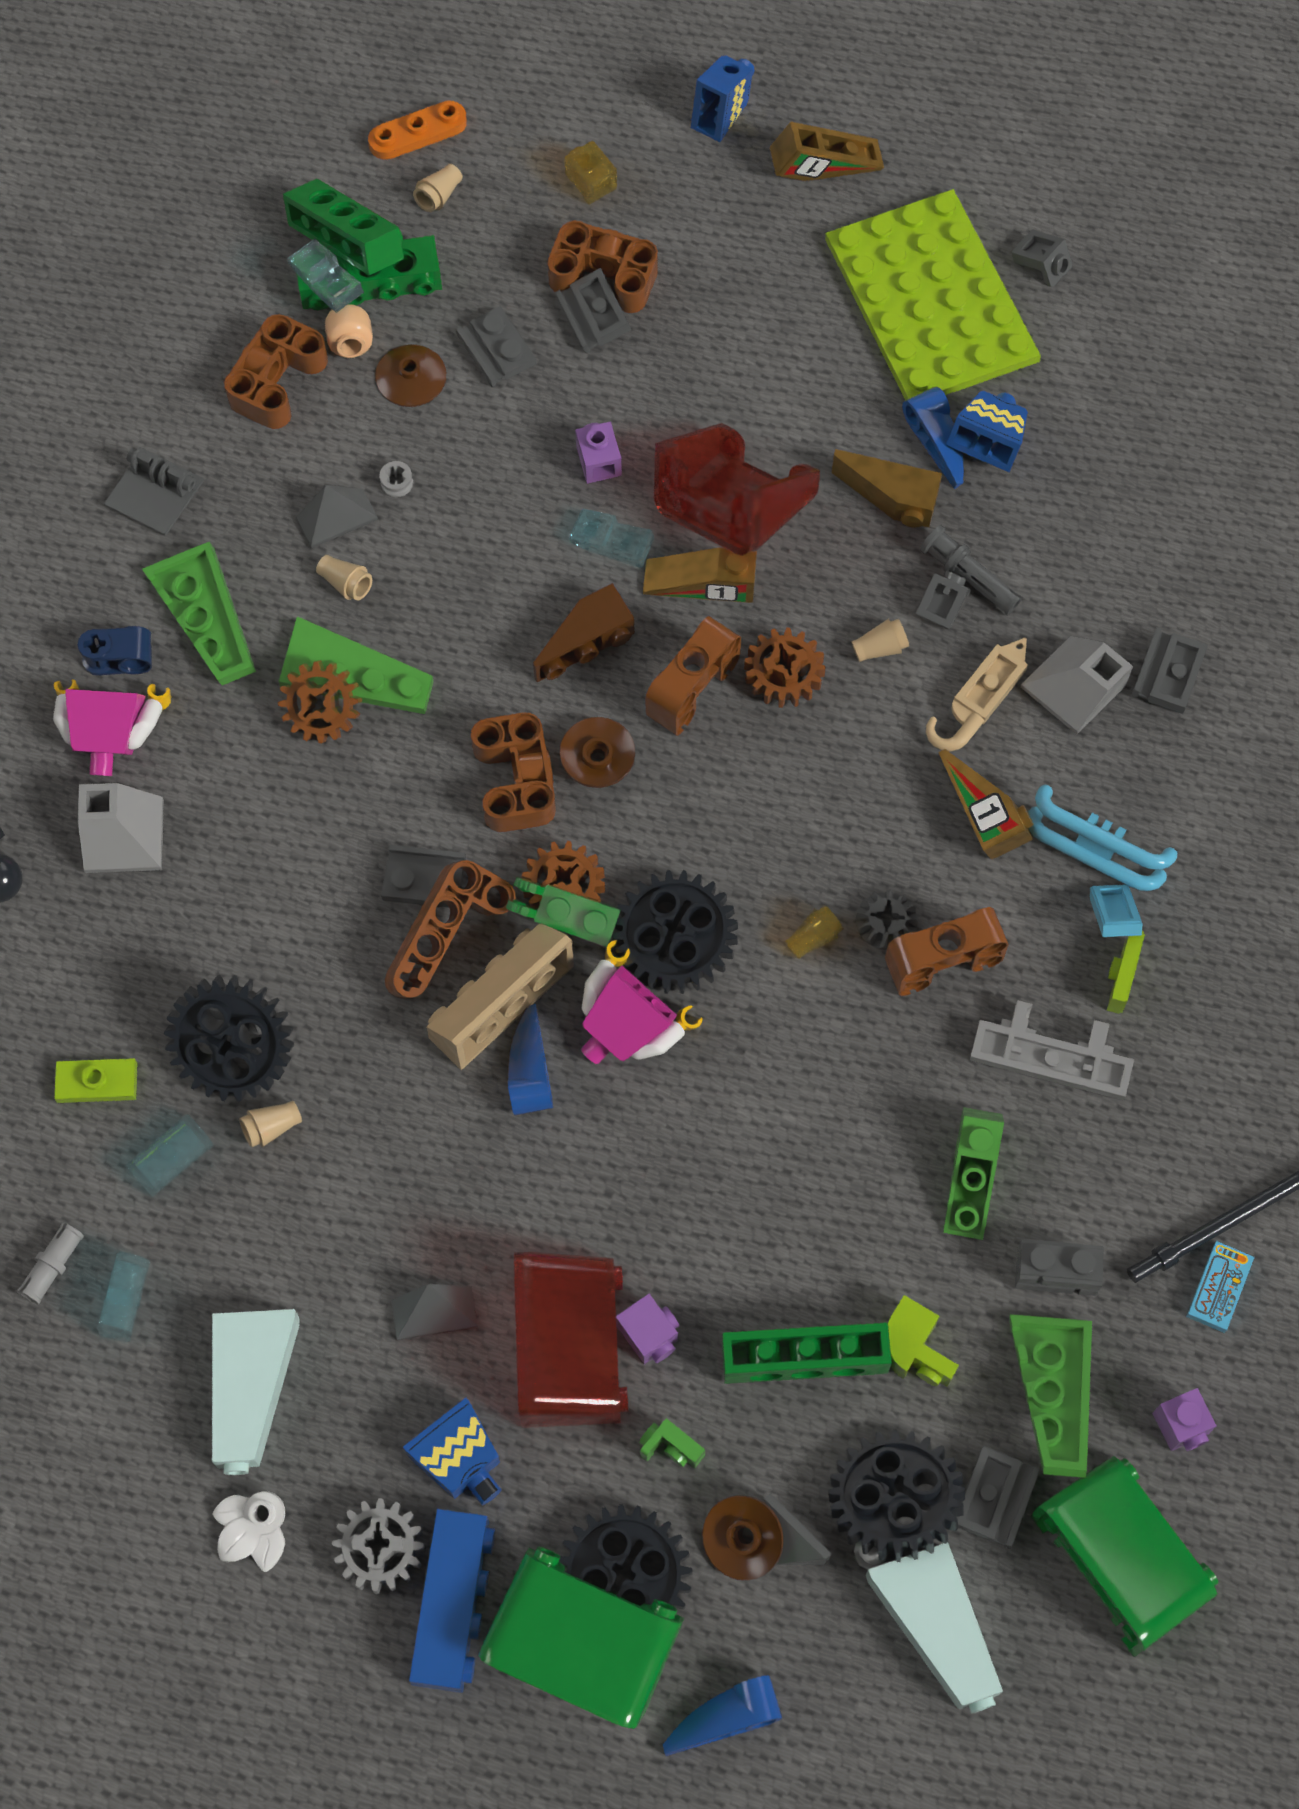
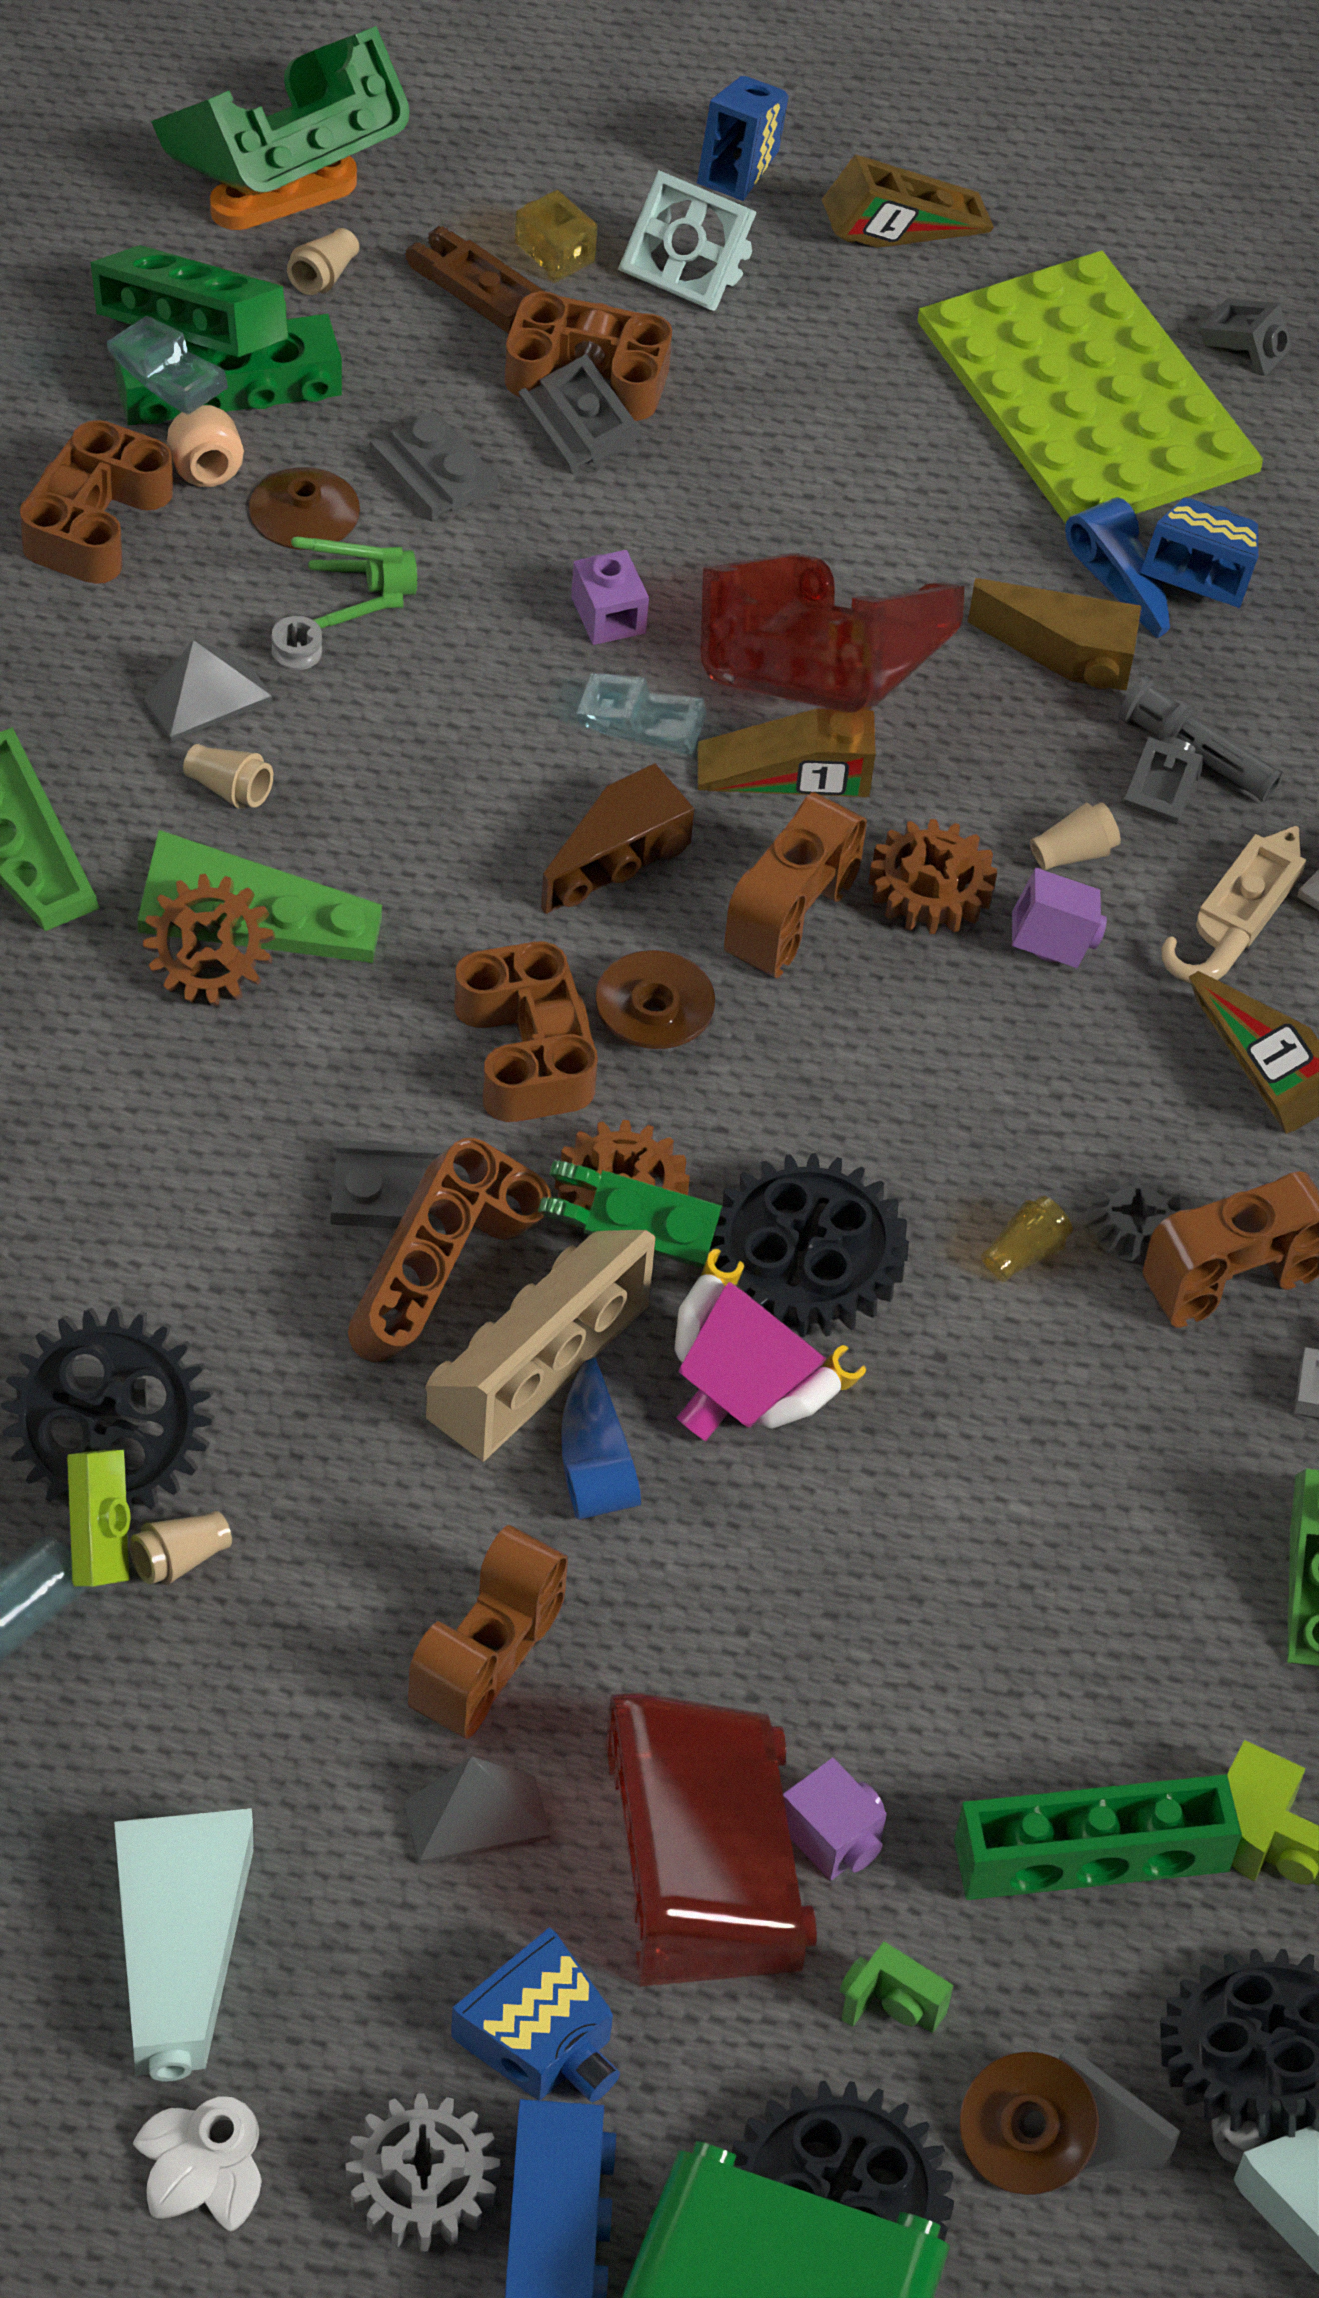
camera: 10 degrees left, 15 degrees down
(218, 1108) = (98, 1517): none -> lime plate
(456, 77) = (340, 102): none -> green windscreen
(458, 429) = (387, 571): none -> bright green plant
(468, 1177) = (517, 1603): none -> dark orange beam
(535, 202) = (471, 275): none -> reddish brown hinge
(652, 171) = (654, 227): none -> light aqua piece
(860, 704) = (1057, 918): none -> medium lavender brick

